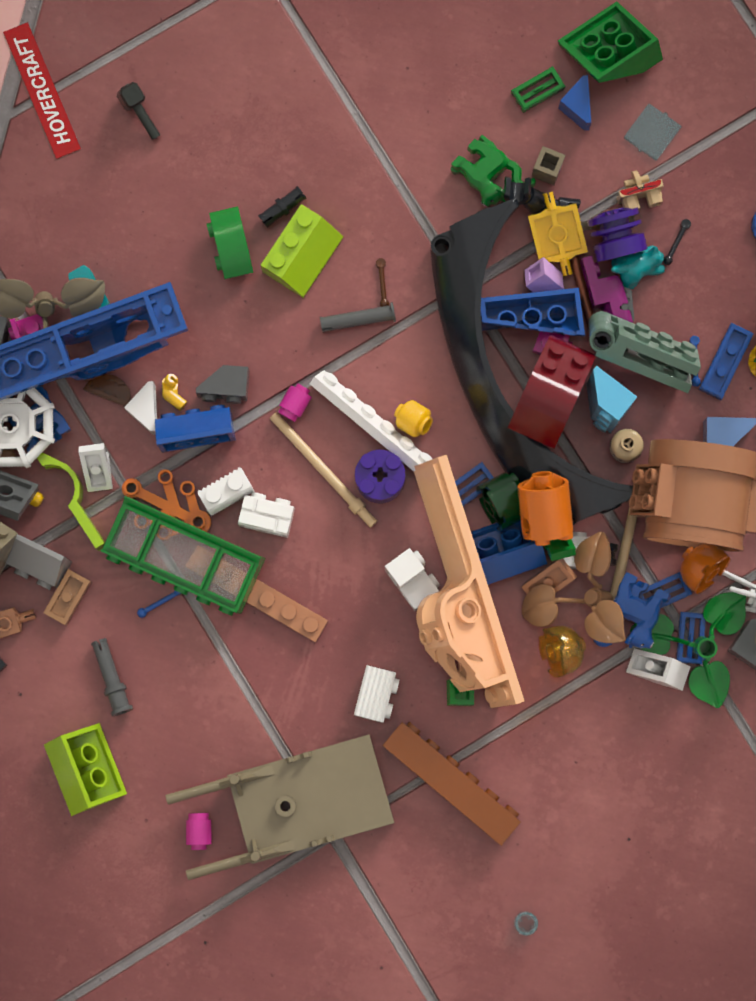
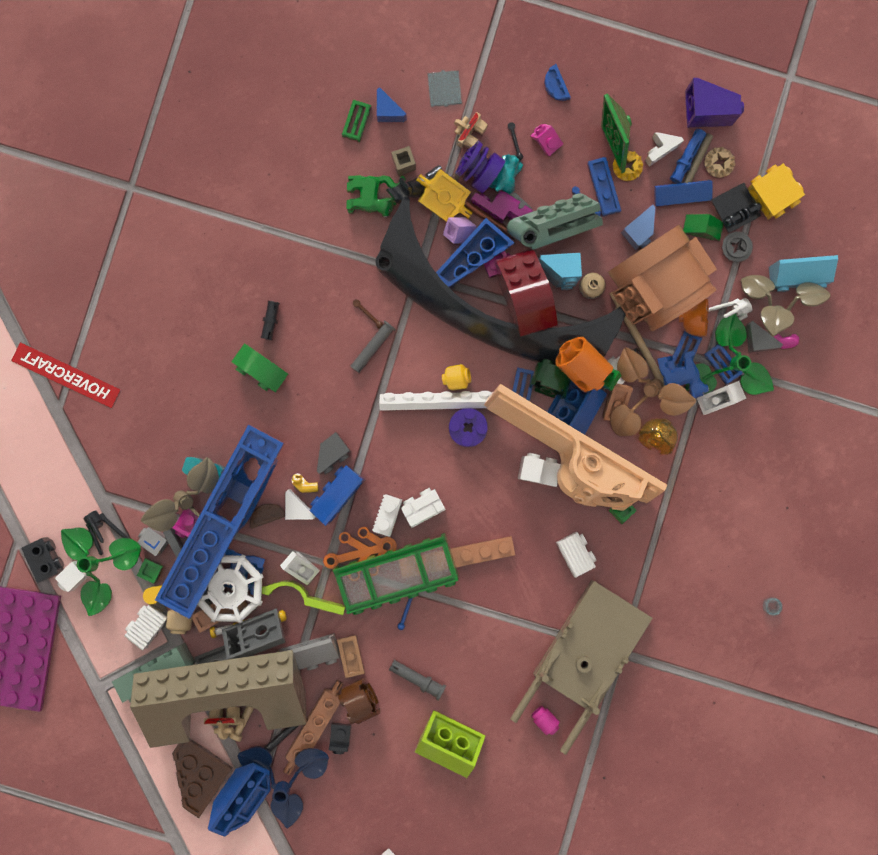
camera: 45 degrees left, 5 degrees up
(35, 646) = (359, 701): none -> reddish brown brick
(132, 97) = (124, 333): pearl dark grey piece -> none
(294, 402) = (380, 428): dark pink brick -> none
(301, 251) = (305, 336): lime slope -> none
(356, 505) = (468, 456): tan bar -> none
(451, 783) = (663, 565): dark orange brick -> none
(612, 45) = (377, 56): green slope -> none
(709, 266) = (547, 138): none -> dark pink bracket

